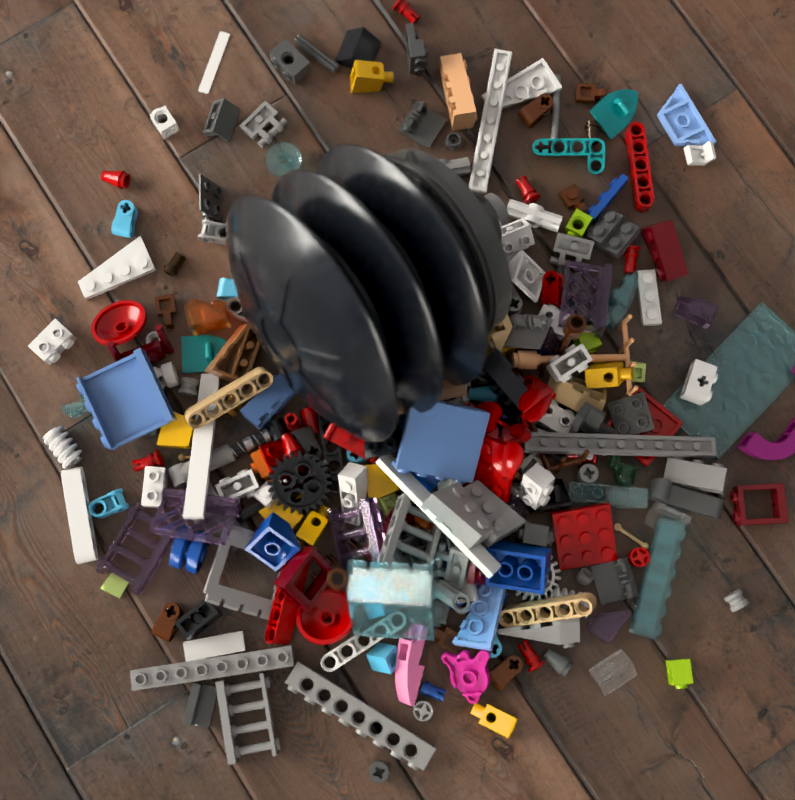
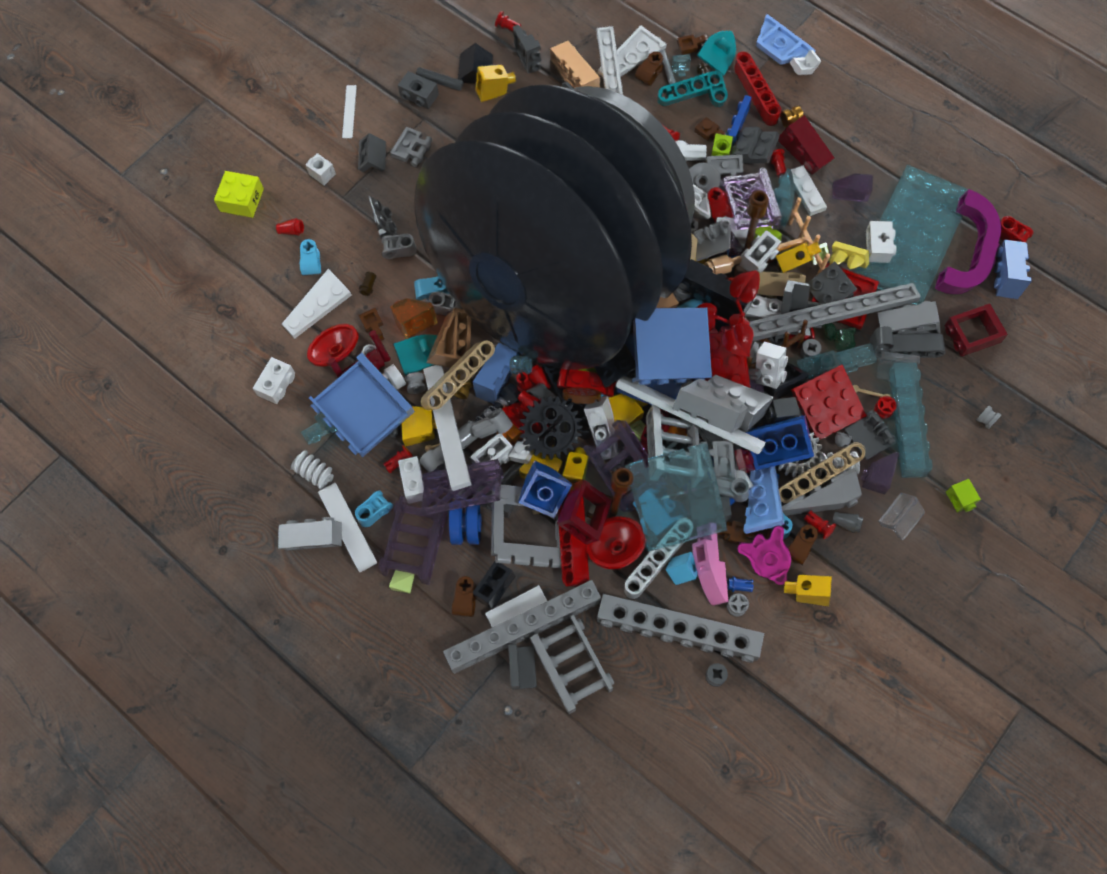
camera: 10 degrees left, 10 degrees down
(40, 514) = (310, 534): none -> light grey brick
(74, 125) = (239, 194): none -> neon yellow brick
(248, 458) = (495, 422): none -> light grey piece
(294, 403) = (520, 364): none -> clear light blue wheel
(340, 459) = (581, 395): none -> reddish brown tile
(548, 246) = (705, 171): none -> light grey dish
(570, 115) = (680, 64): none -> clear light blue tile
(664, 210) = (790, 116): none -> pearl gold wheel
(667, 389) = (852, 255): none -> light yellow tile

